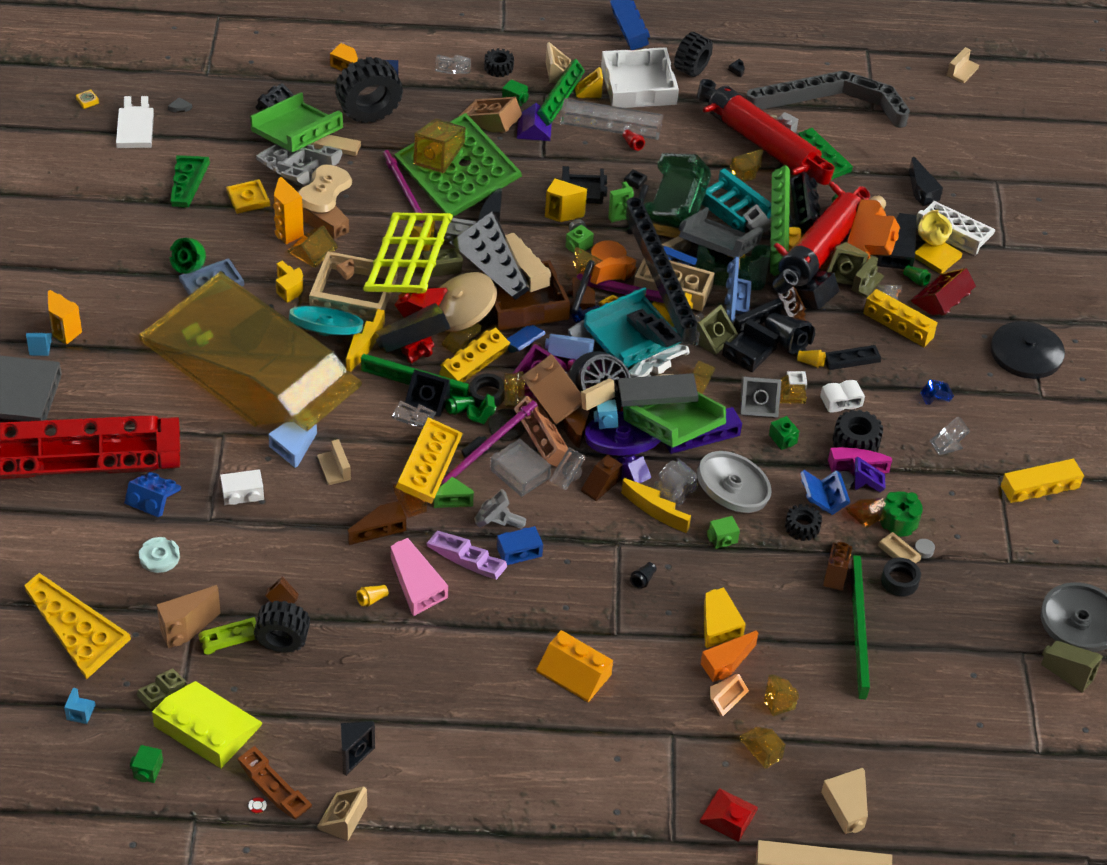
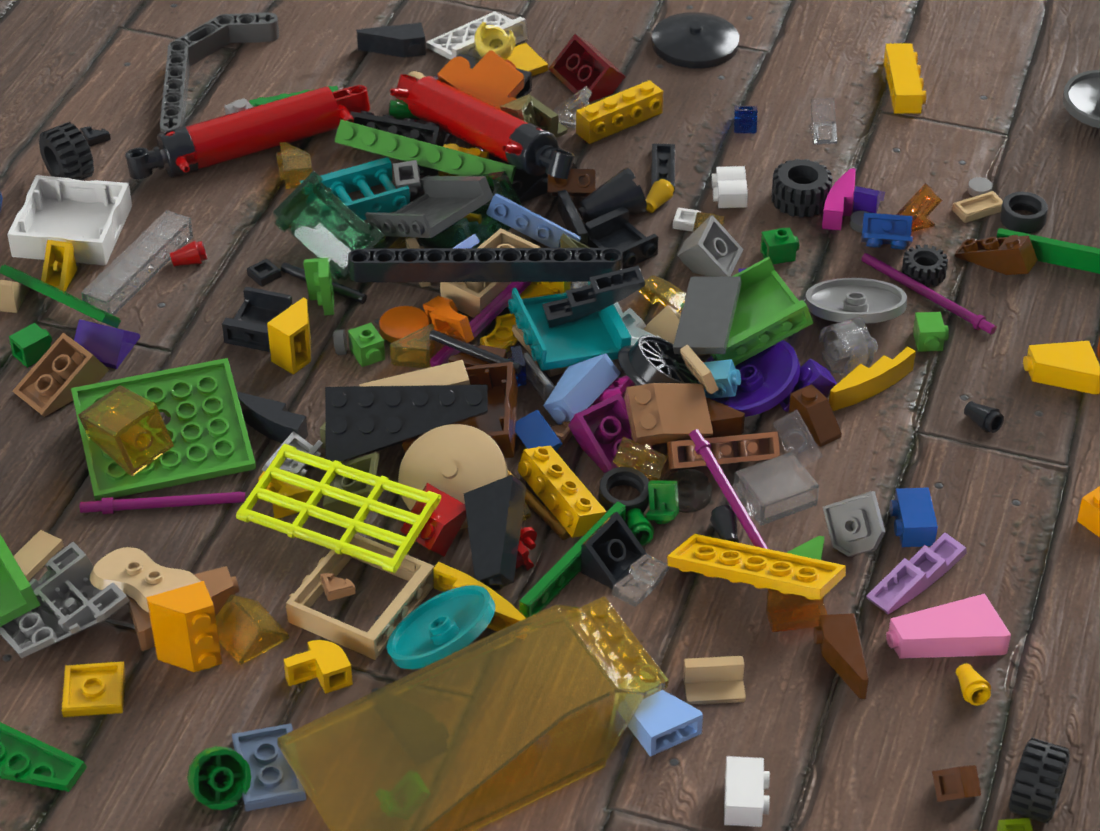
camera: 70 degrees left, 5 degrees down
(753, 562) = (979, 322): none -> magenta bar
(901, 513) = (937, 175): green brick -> none
(918, 275) = (550, 83): green cone -> none

